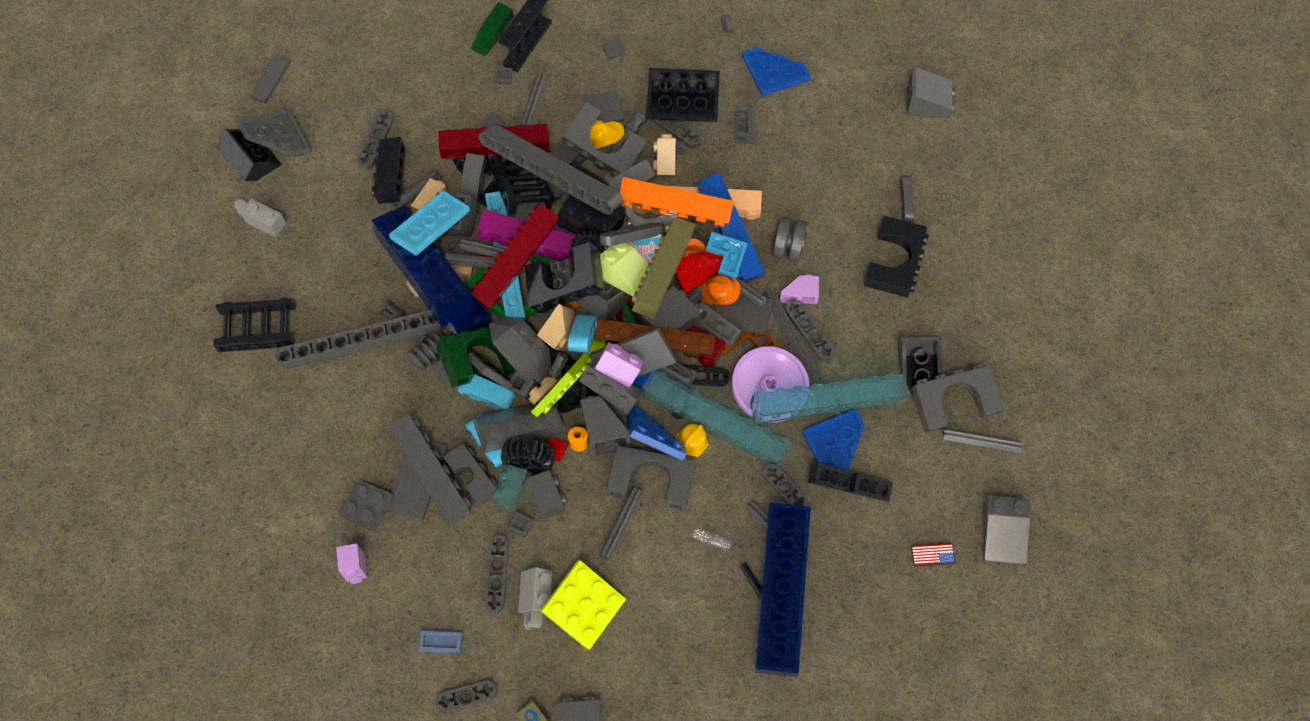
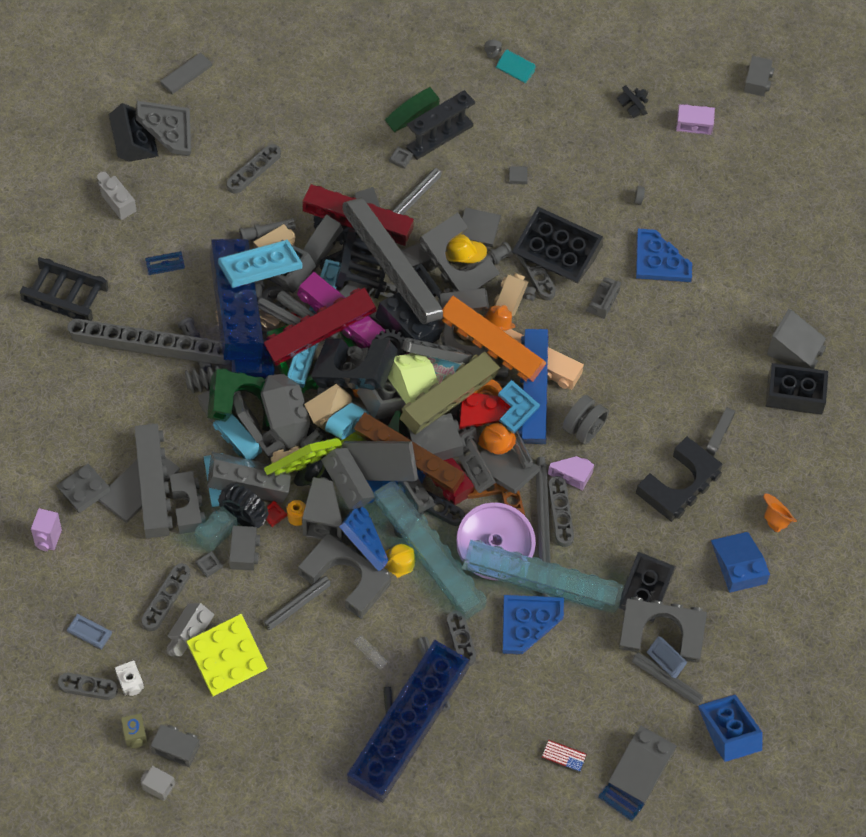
camera: 20 degrees right, 5 degrees down
(341, 264) = (158, 268): none -> clear blue tile
(389, 170) = (250, 201): black brick -> none
(508, 678) = (127, 671): none -> white brick
(619, 364) = (363, 460): lavender brick -> none
(668, 178) = (500, 317): none -> orange piece
(850, 482) = (522, 659): black slope -> none
(951, 134) = (797, 388): none -> black brick
(973, 421) = (667, 657): none -> sand blue tile
(986, 306) = (740, 562): none -> blue slope
(994, 251) = (777, 514): none -> orange piece
(1022, 574) = (617, 807): none -> clear blue tile
(1062, 459) = (731, 728): none -> blue slope

